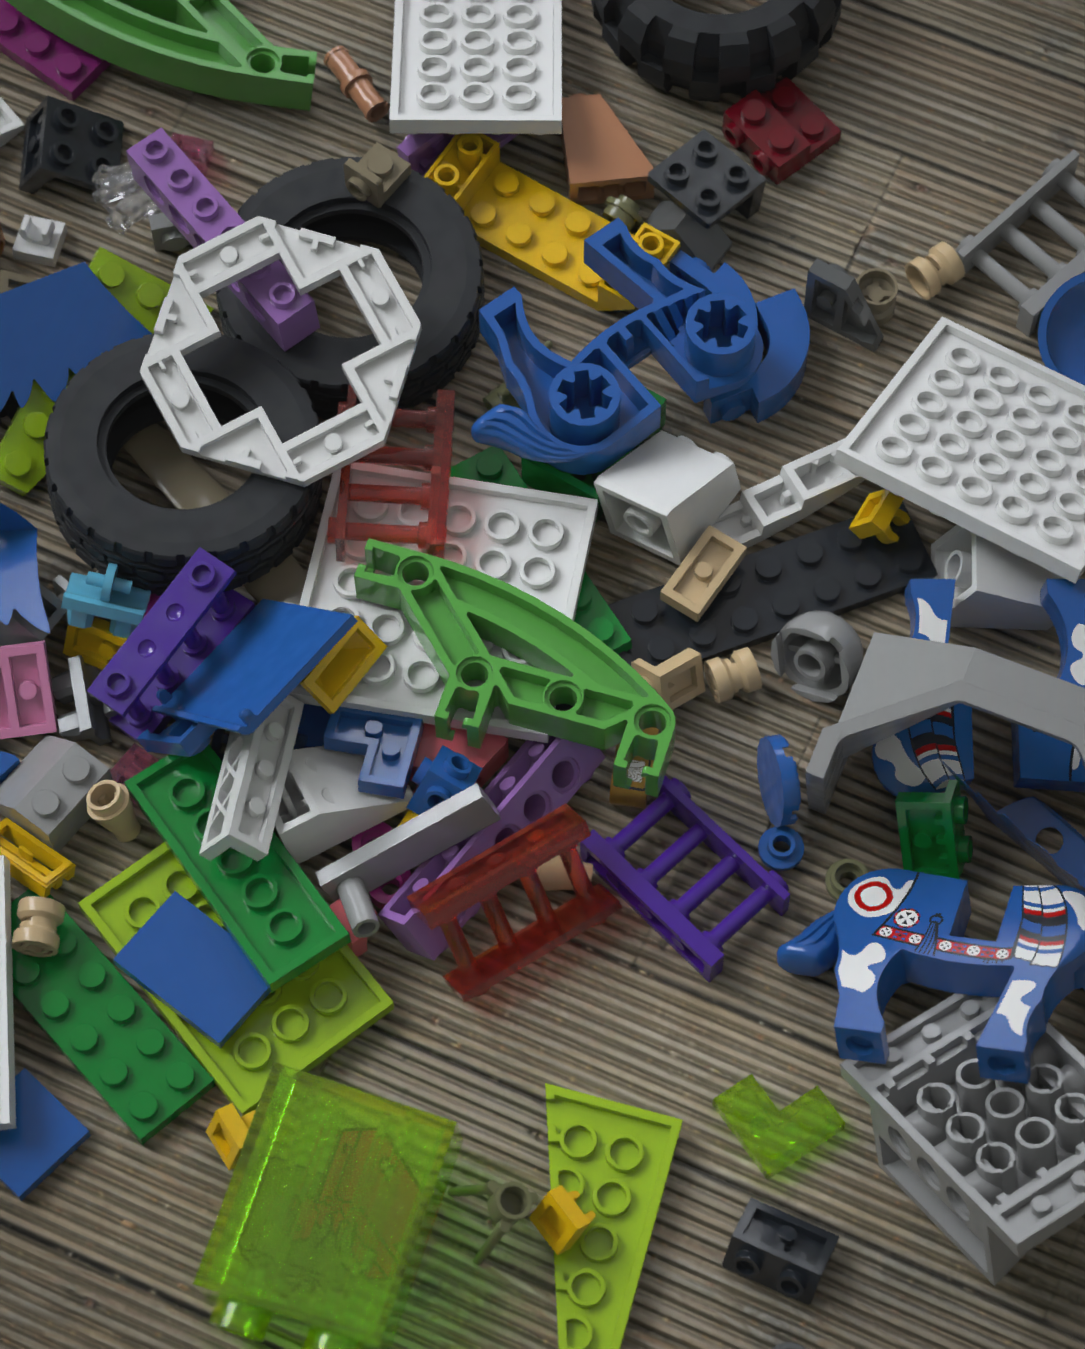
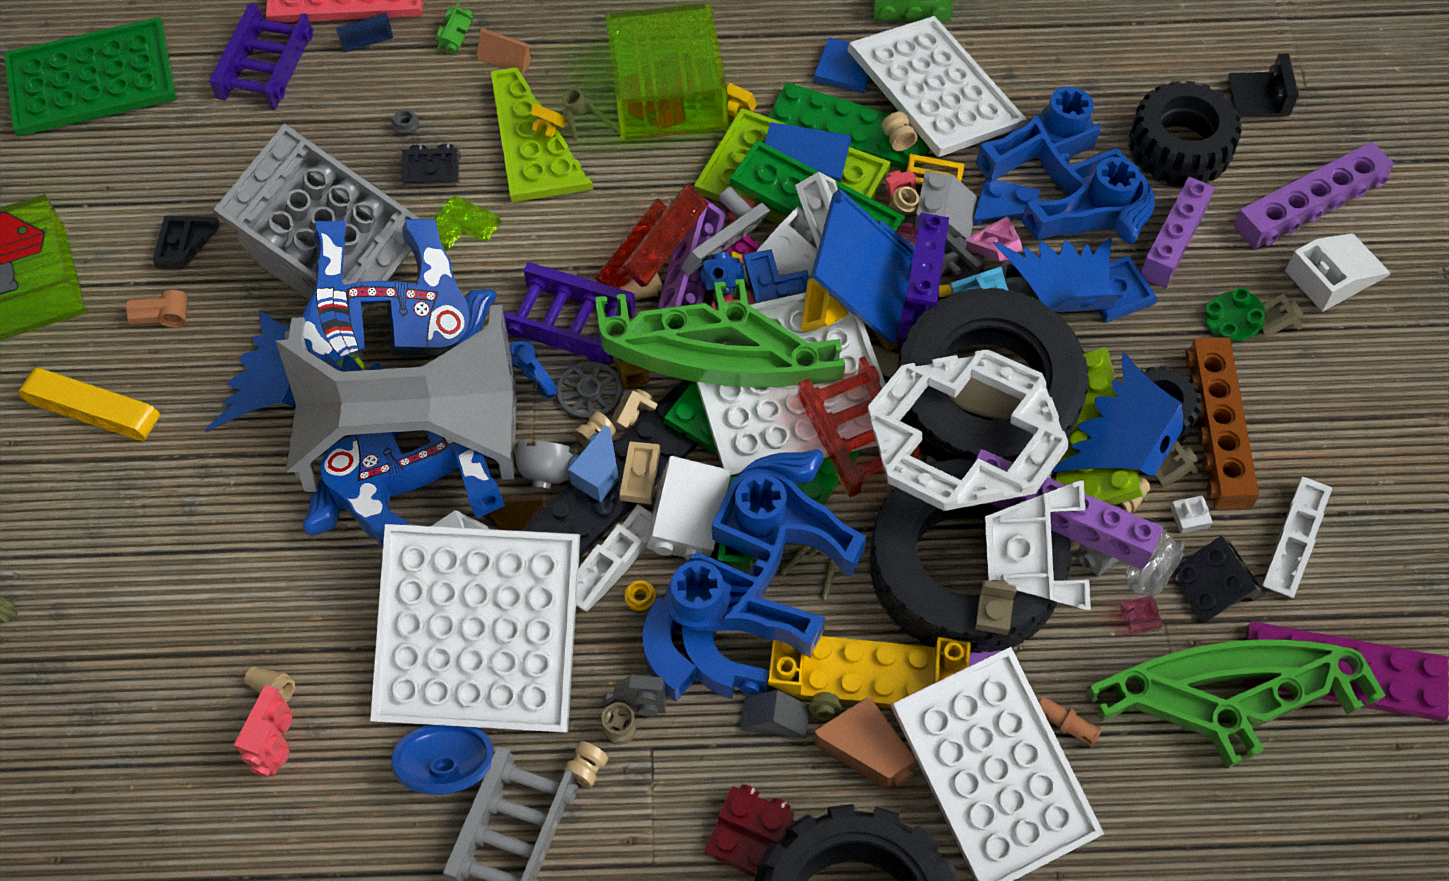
camera: 155 degrees right, 5 degrees down
(90, 859) = (898, 180): none -> coral tile
(294, 199) = (1022, 546): none -> white wing
(708, 181) = (775, 741): black bracket -> none
(710, 754) = (589, 390): none -> dark grey wheel
(757, 601) = (596, 466): none -> medium blue slope
(779, 430) = (636, 588): none -> yellow plate
(879, 611) = (517, 512): none -> dark brown slope

